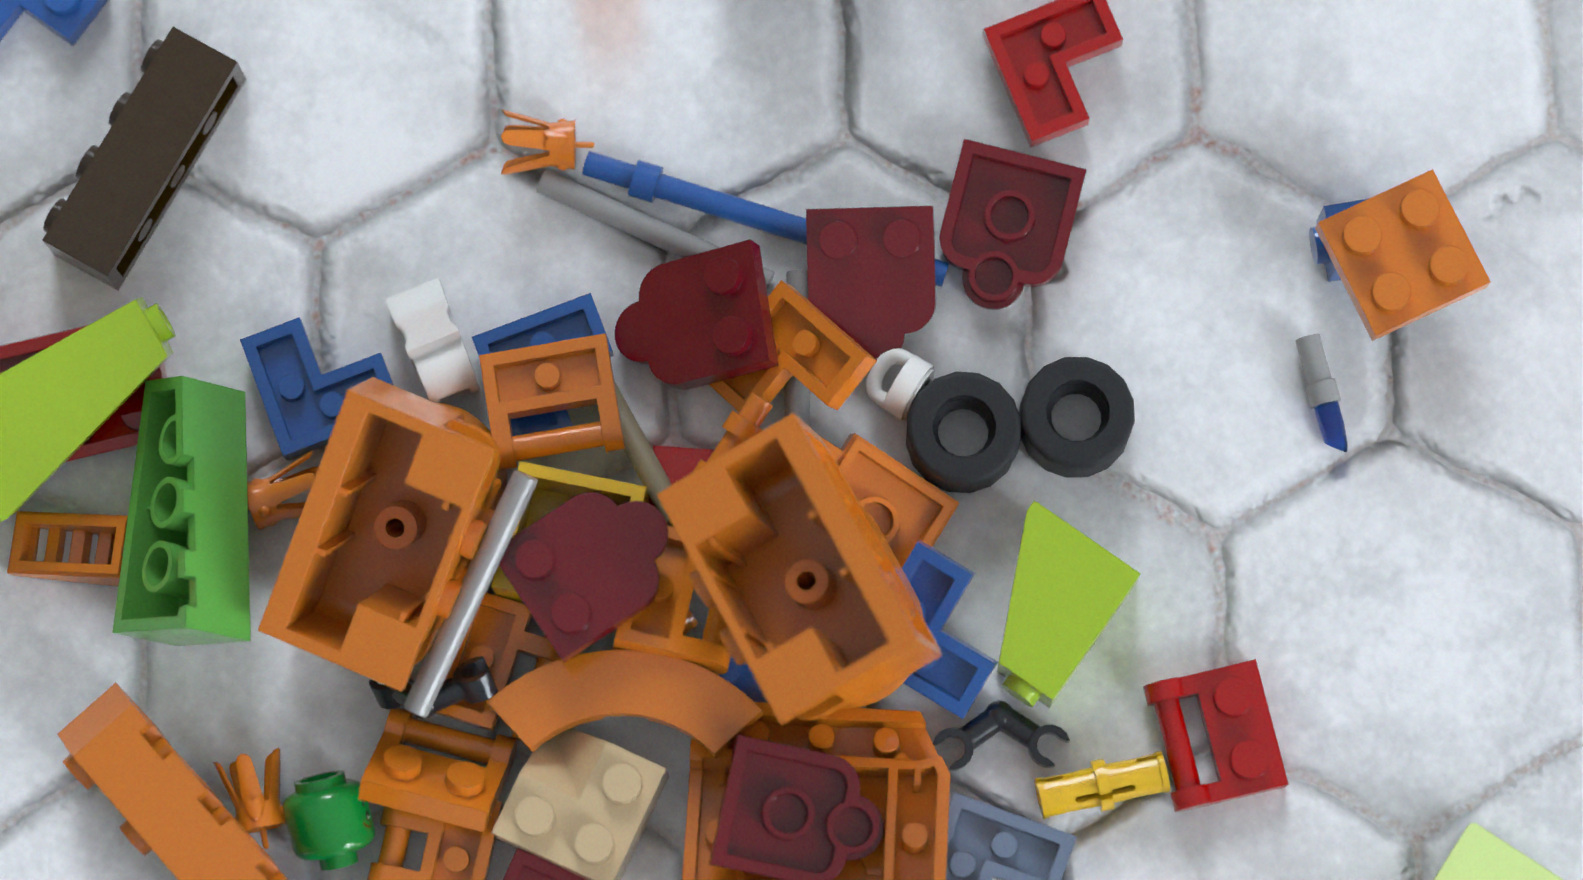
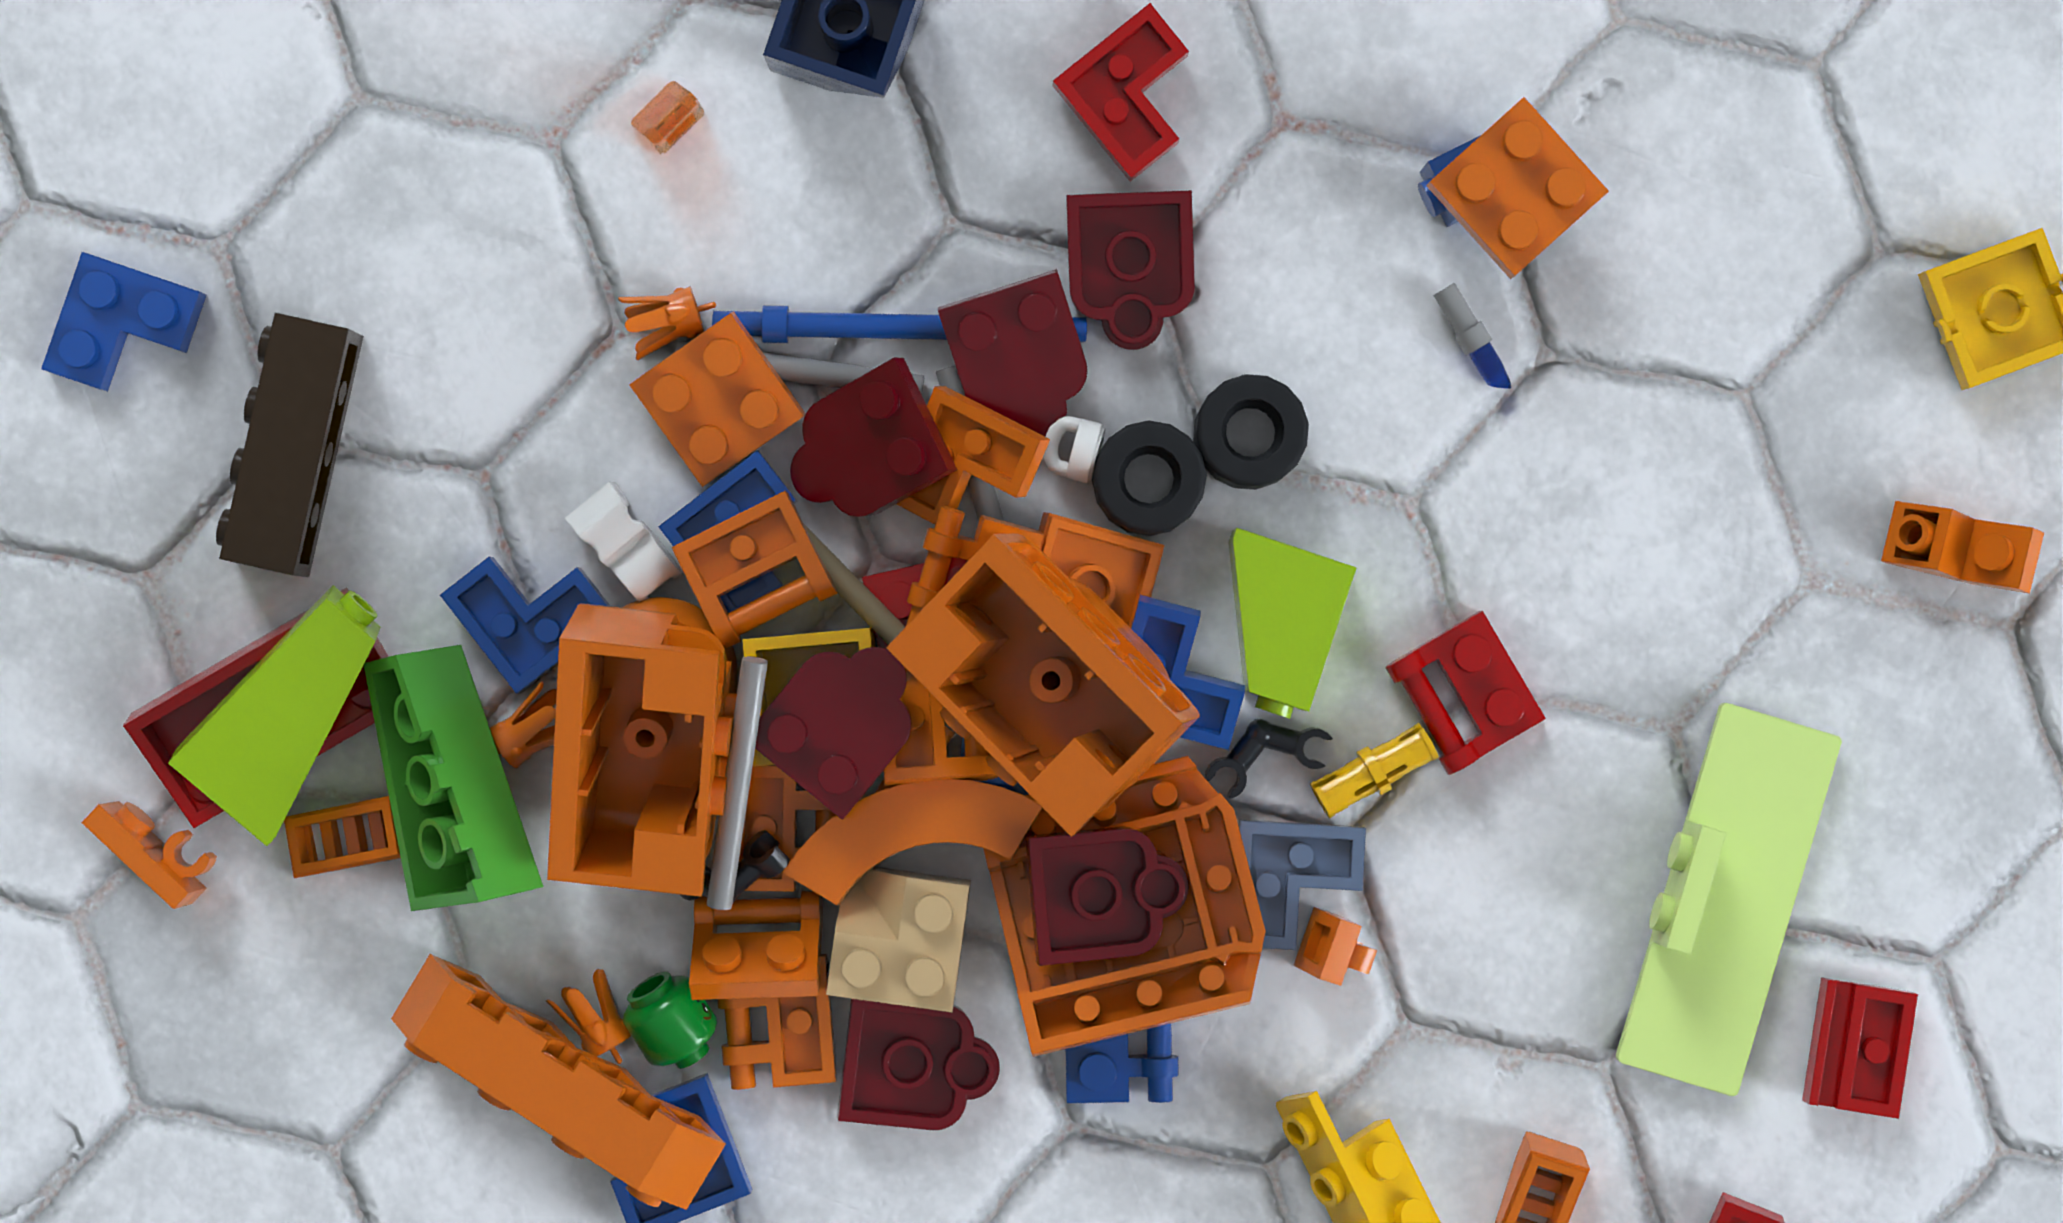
camera: 20 degrees left, 10 degrees up
(567, 234) = (717, 399): none -> orange plate

